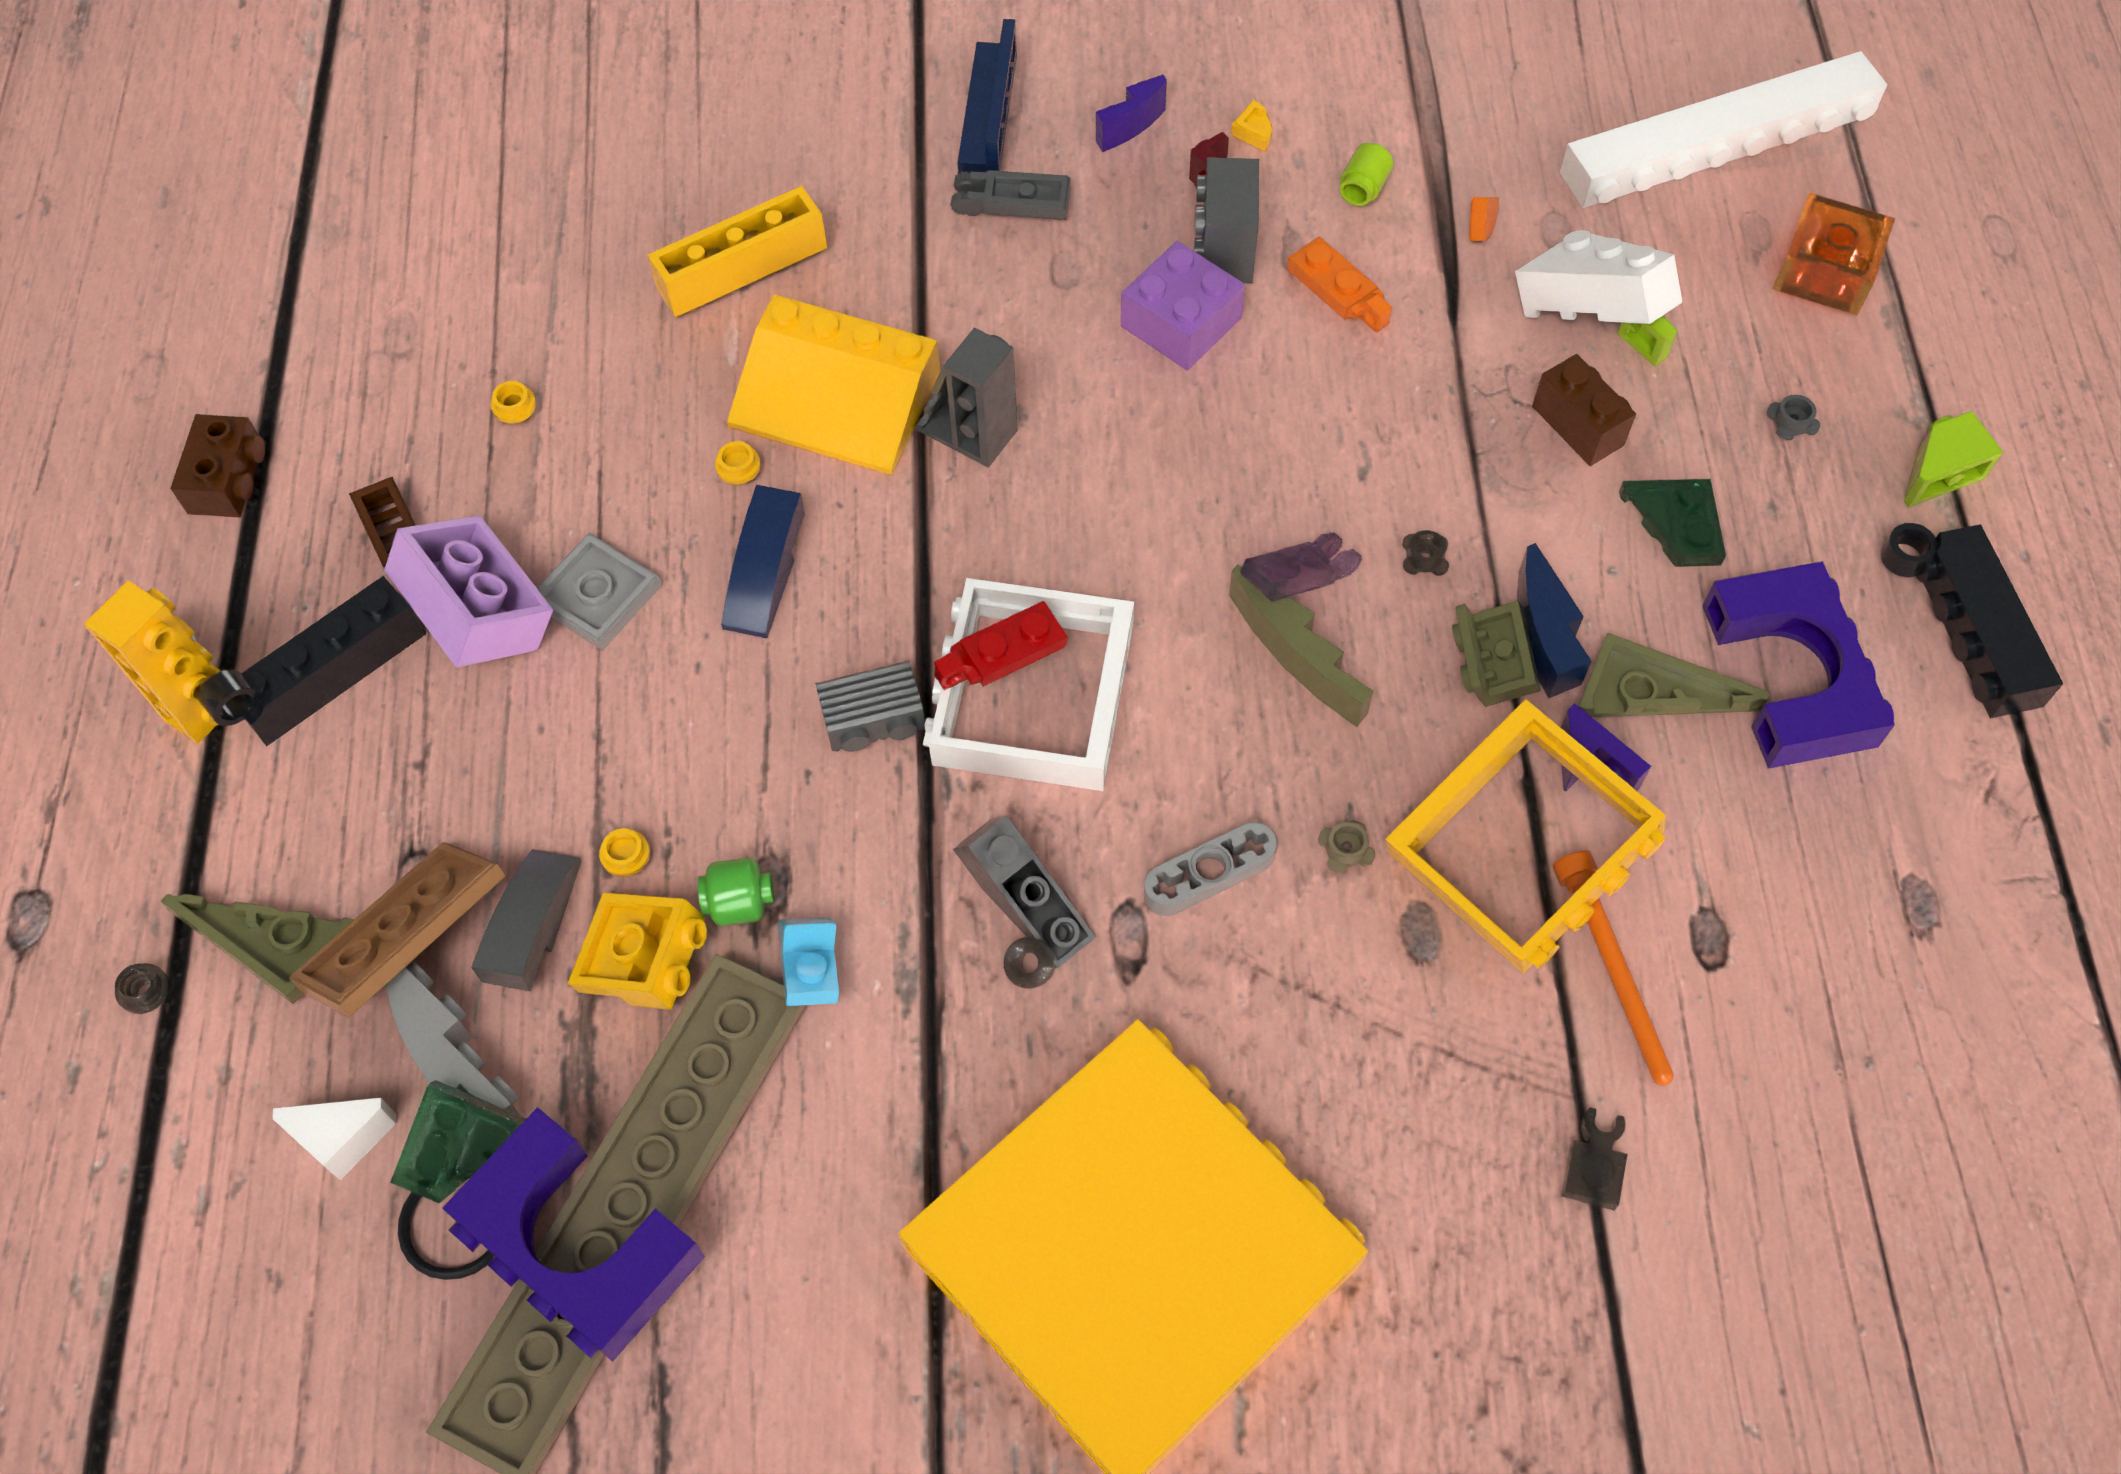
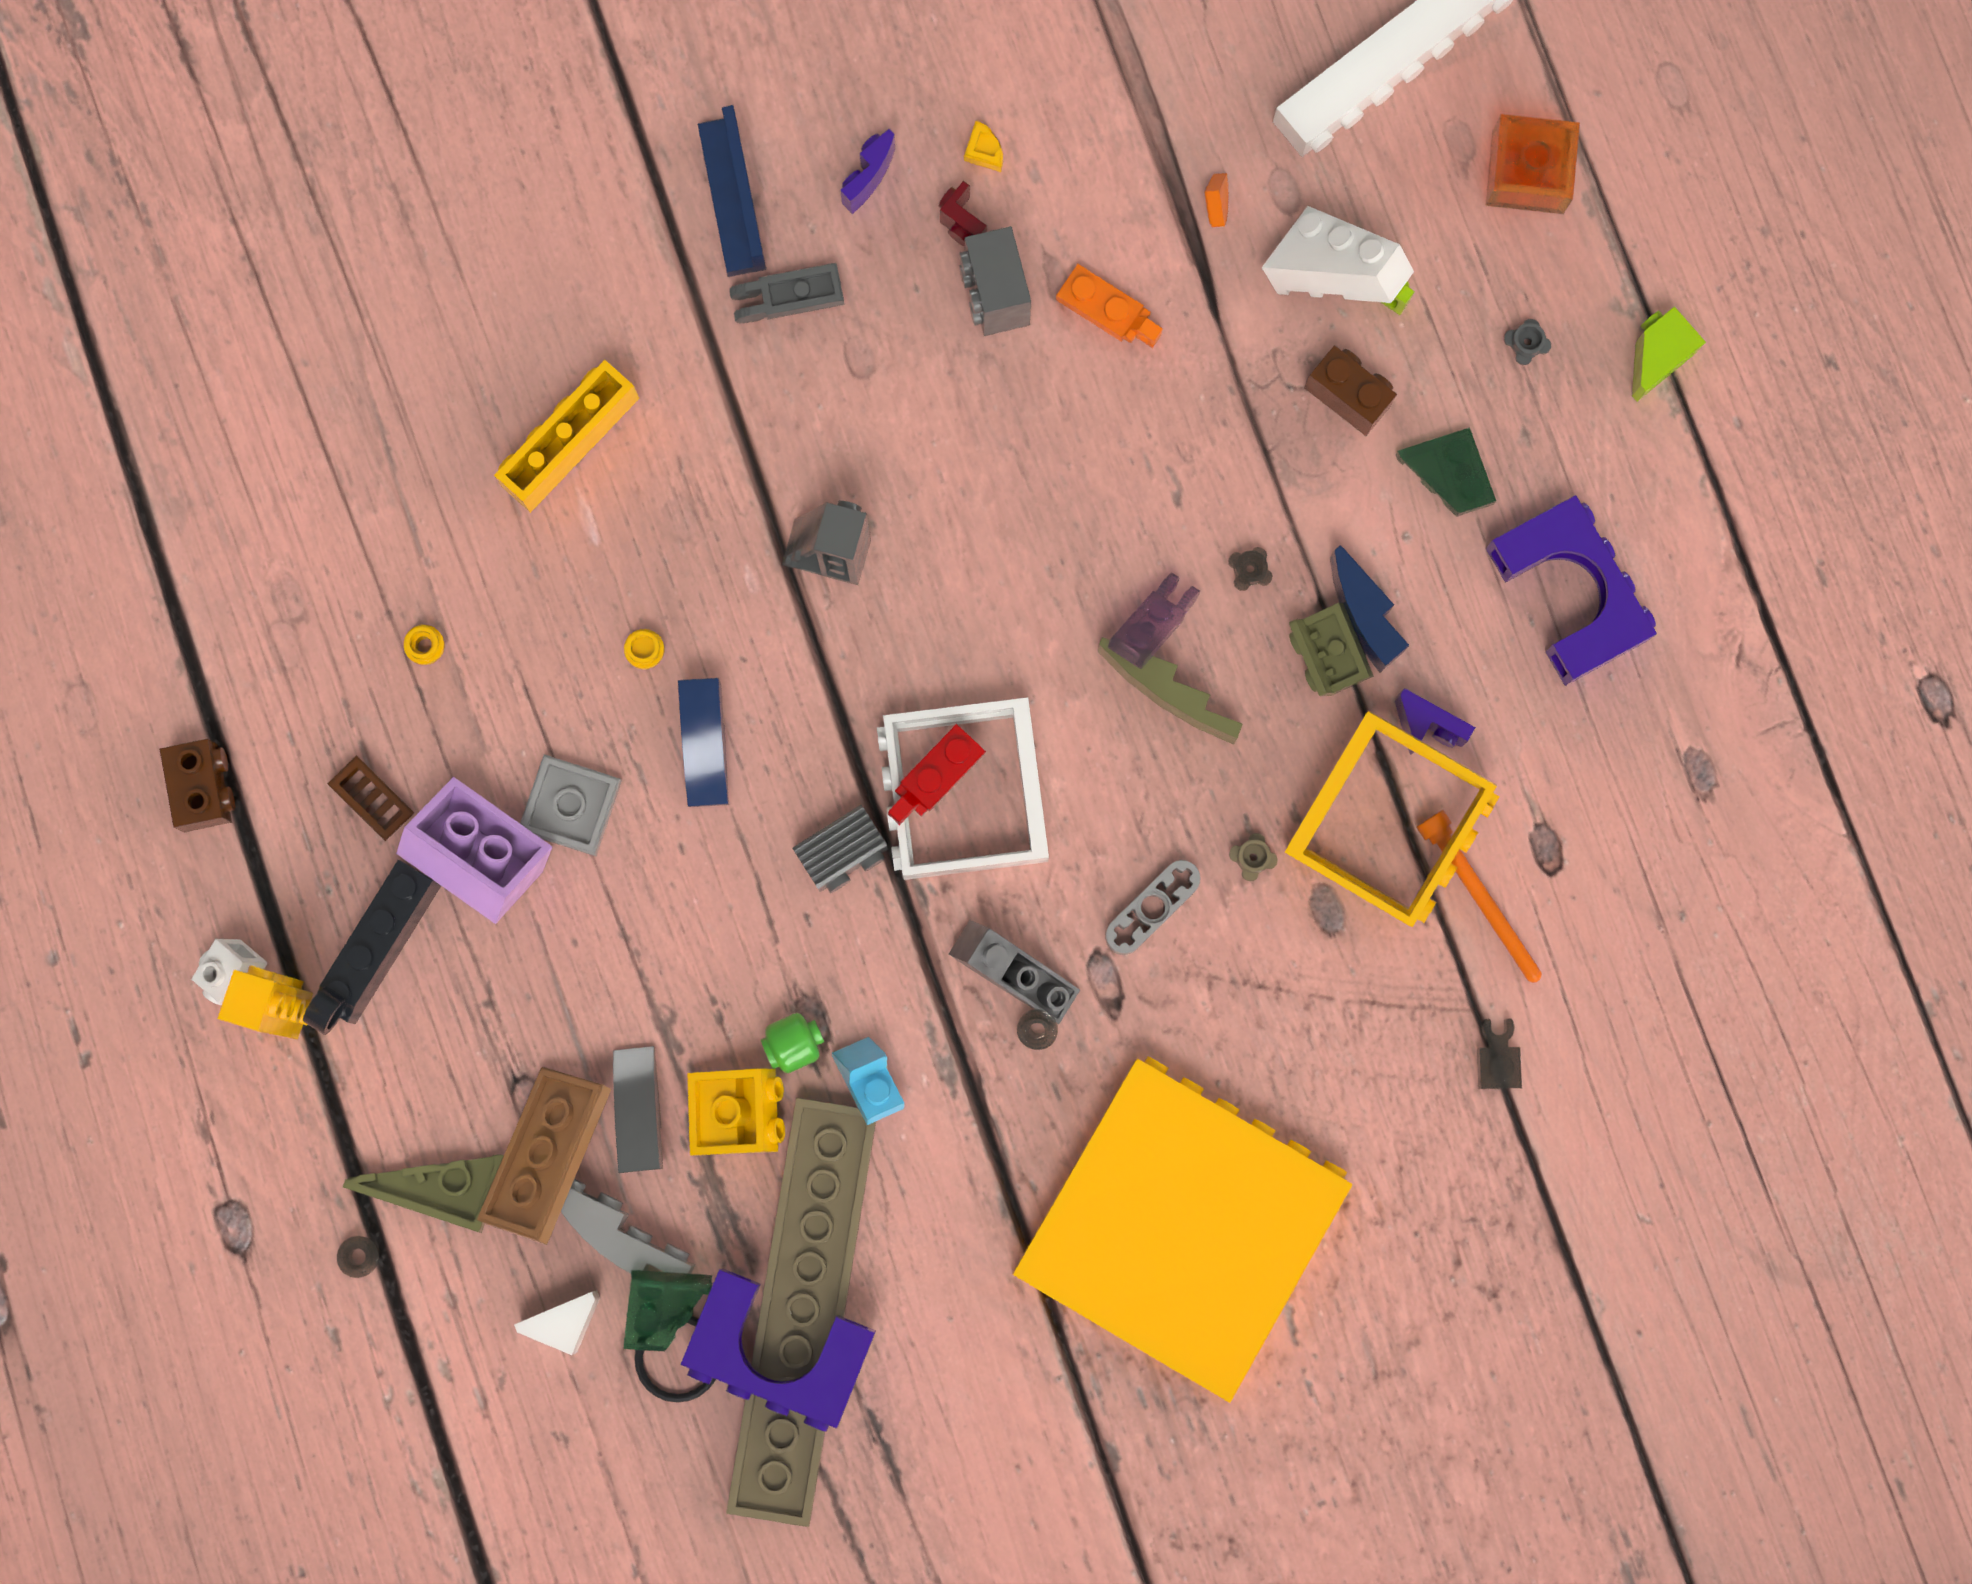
camera: 20 degrees left, 20 degrees up
(624, 852) = (689, 1032): yellow plate -> none
(834, 384) = (700, 548): yellow slope -> none
(1182, 305) = (978, 378): medium lavender brick -> none
(1365, 174) = (1101, 182): lime brick -> none
(1647, 682) = (1453, 641): olive wing -> none
(1980, 615) = (1709, 499): black hinge -> none

